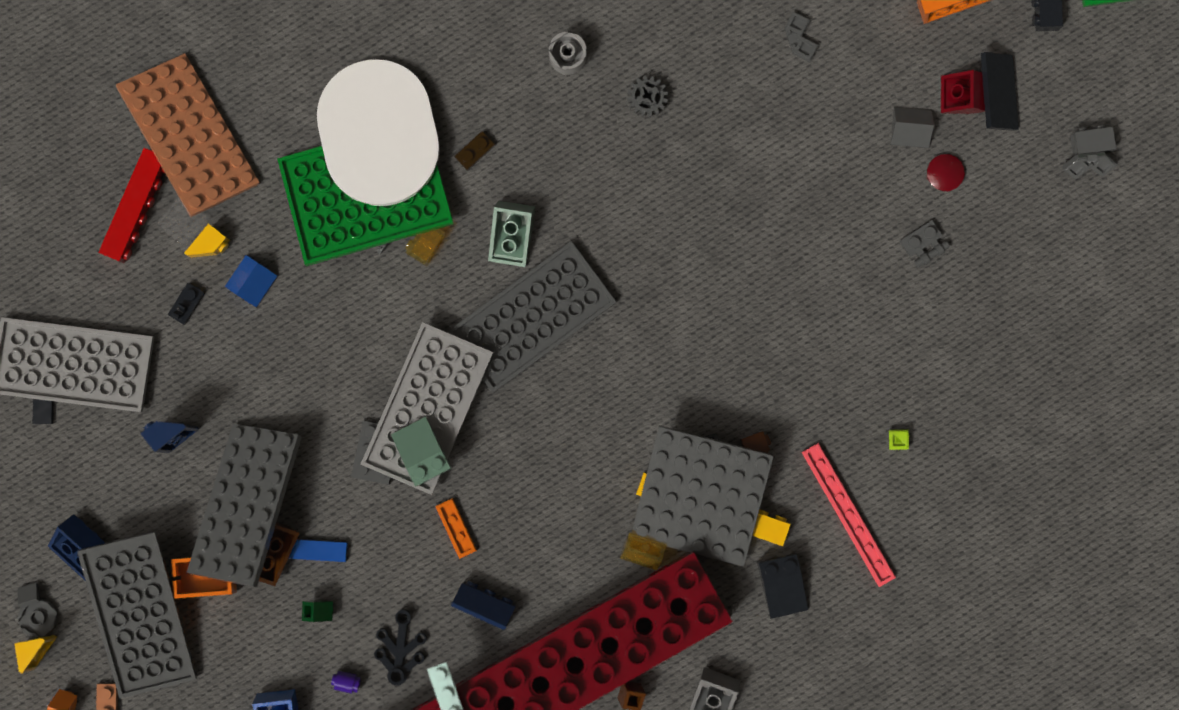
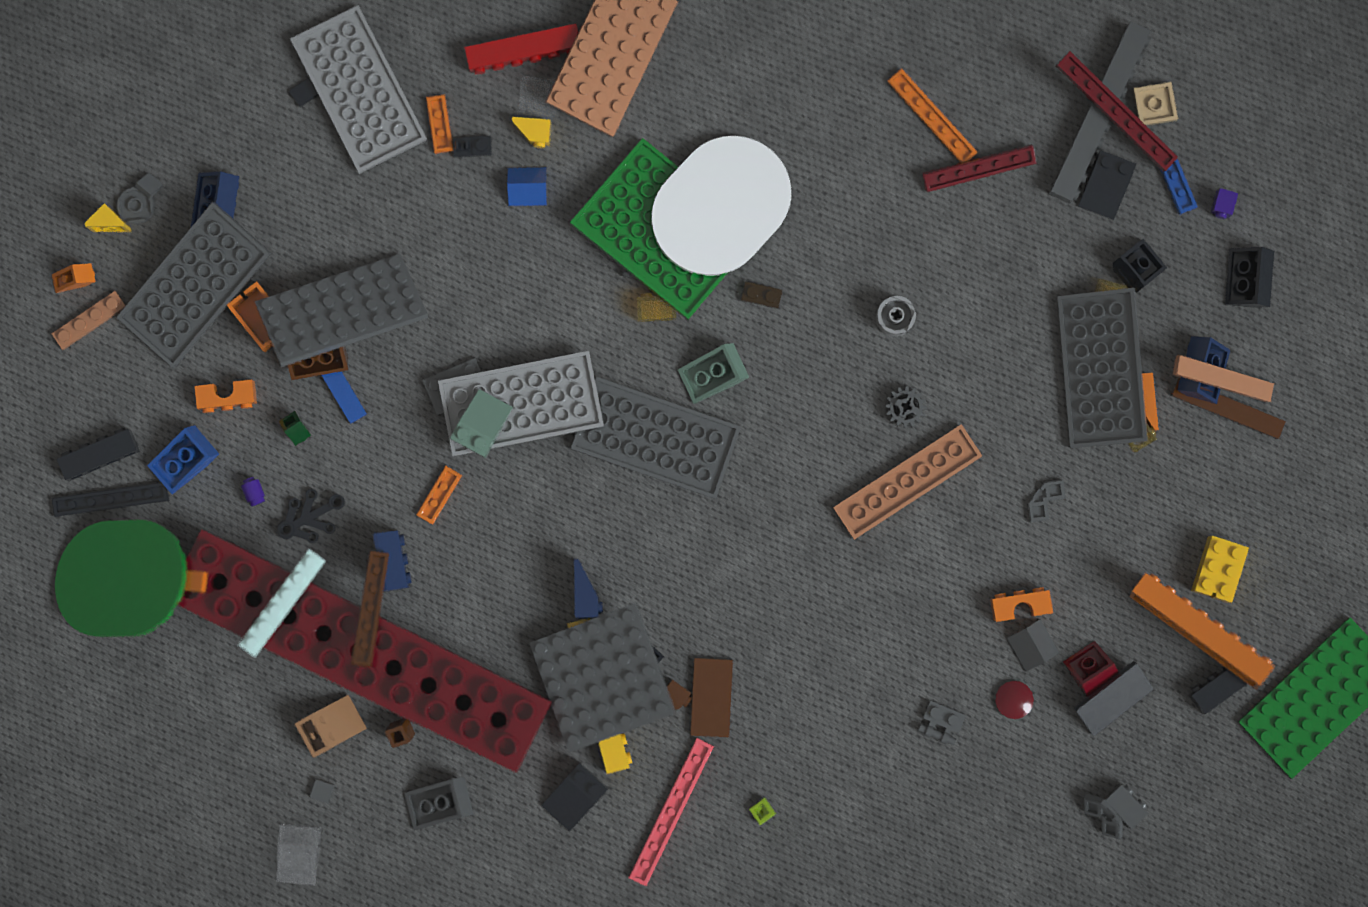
camera: 50 degrees right, 0 degrees up
(148, 317) = (439, 124): none -> orange tile
(167, 436) = (354, 208): dark blue slope -> none
(259, 636) = (243, 395): none -> orange arch
(513, 651) = (370, 609): none -> reddish brown tile
(626, 464) = (586, 598): none -> dark blue slope
(642, 551) = (524, 661): clear yellow brick -> none
(709, 137) = (907, 481): none -> nougat plate
(777, 417) = (711, 697): none -> reddish brown tile
(865, 128) = (1004, 606): none -> orange arch

